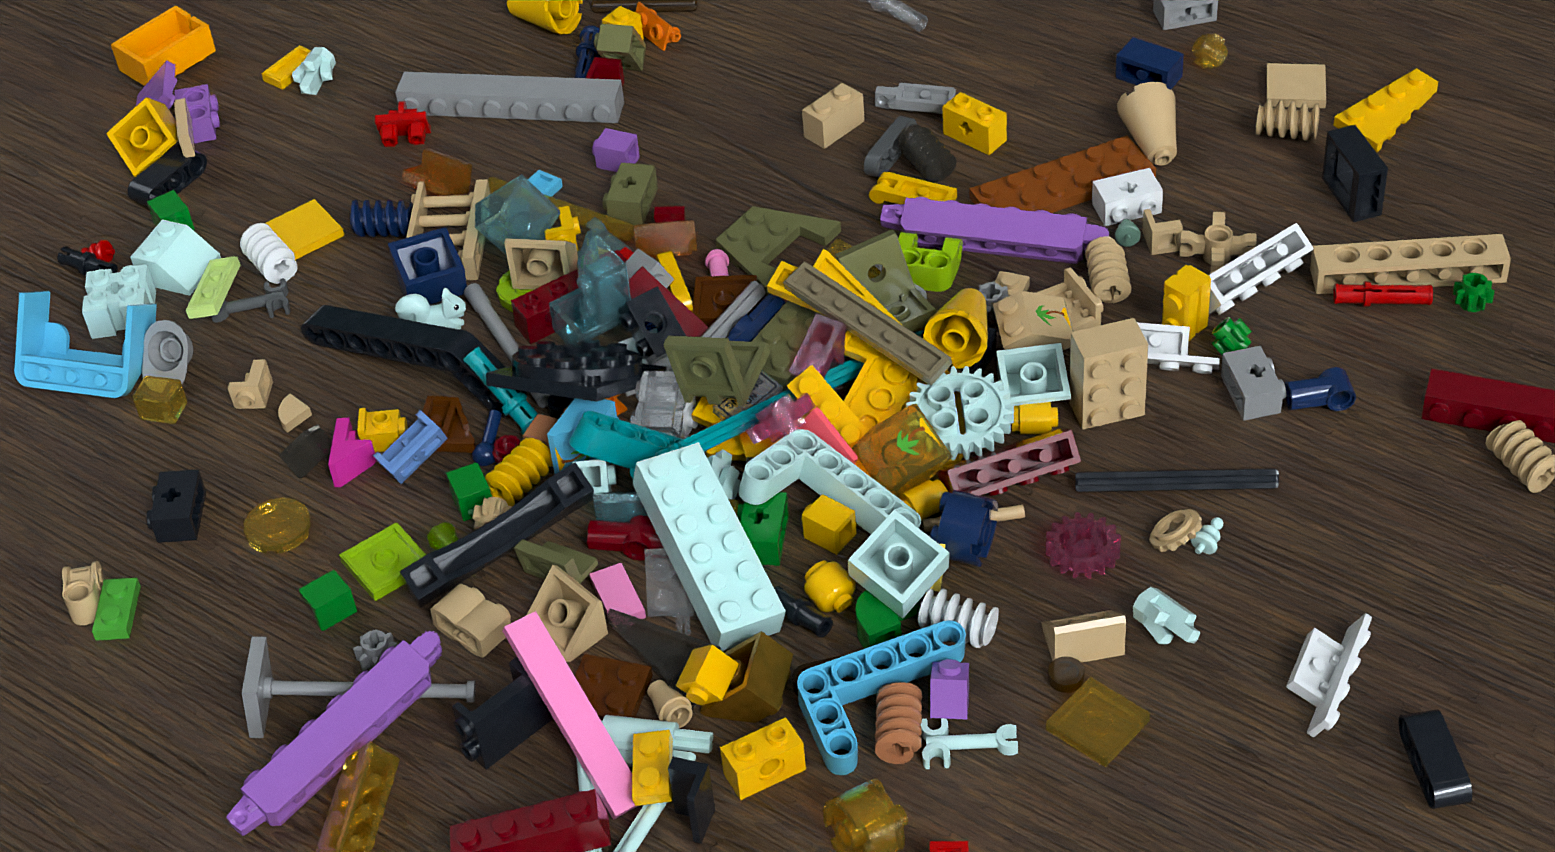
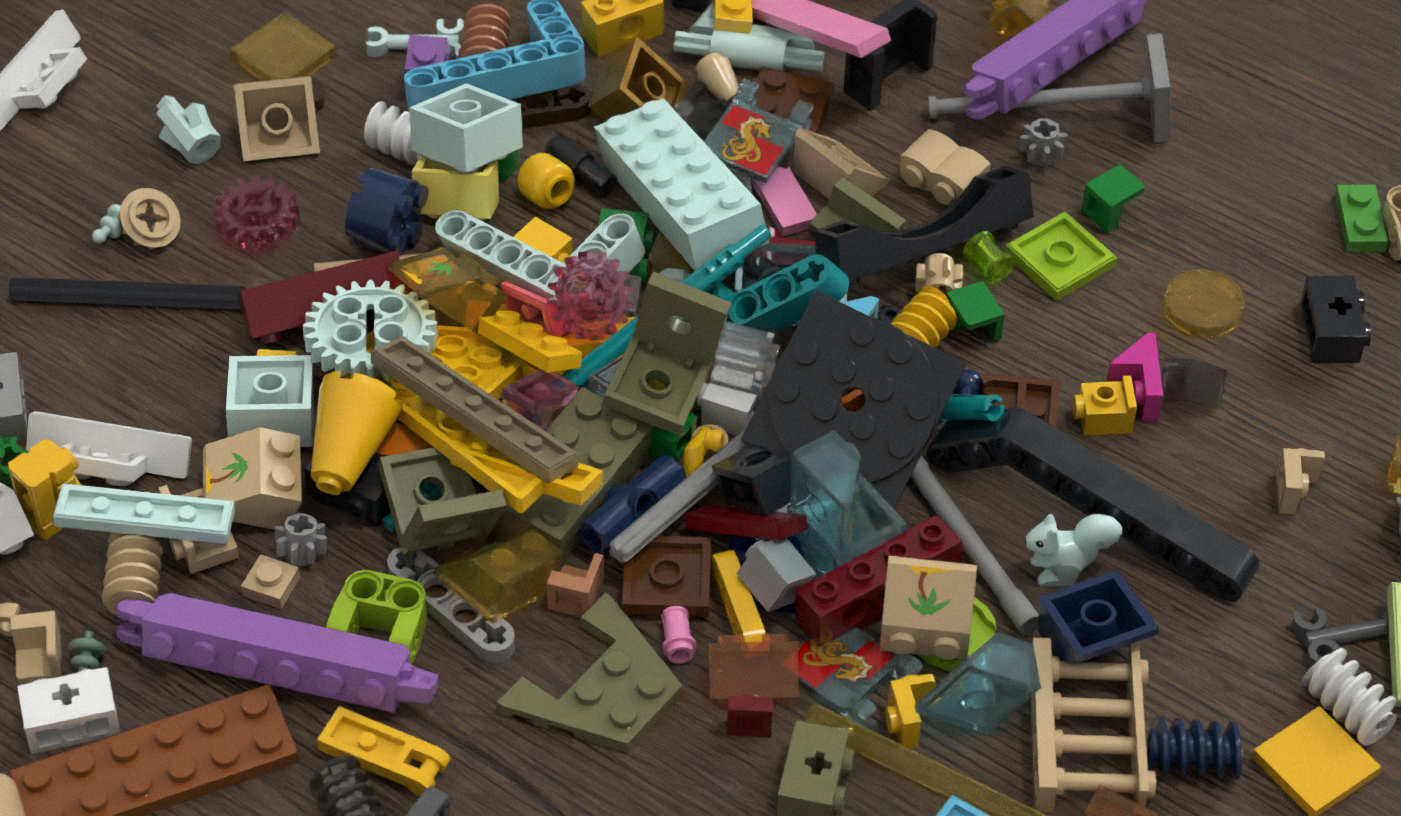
camera: 175 degrees right, 5 degrees up
(292, 412) = (1233, 452): tan tile -> none
(412, 448) = (1057, 358): medium blue hinge -> none
(641, 618) = (755, 139): none -> flag
(707, 675) = (679, 76): yellow brick -> none
(1103, 276) = (144, 513): none -> light aqua tile
(1108, 373) = (177, 363): tan brick -> none

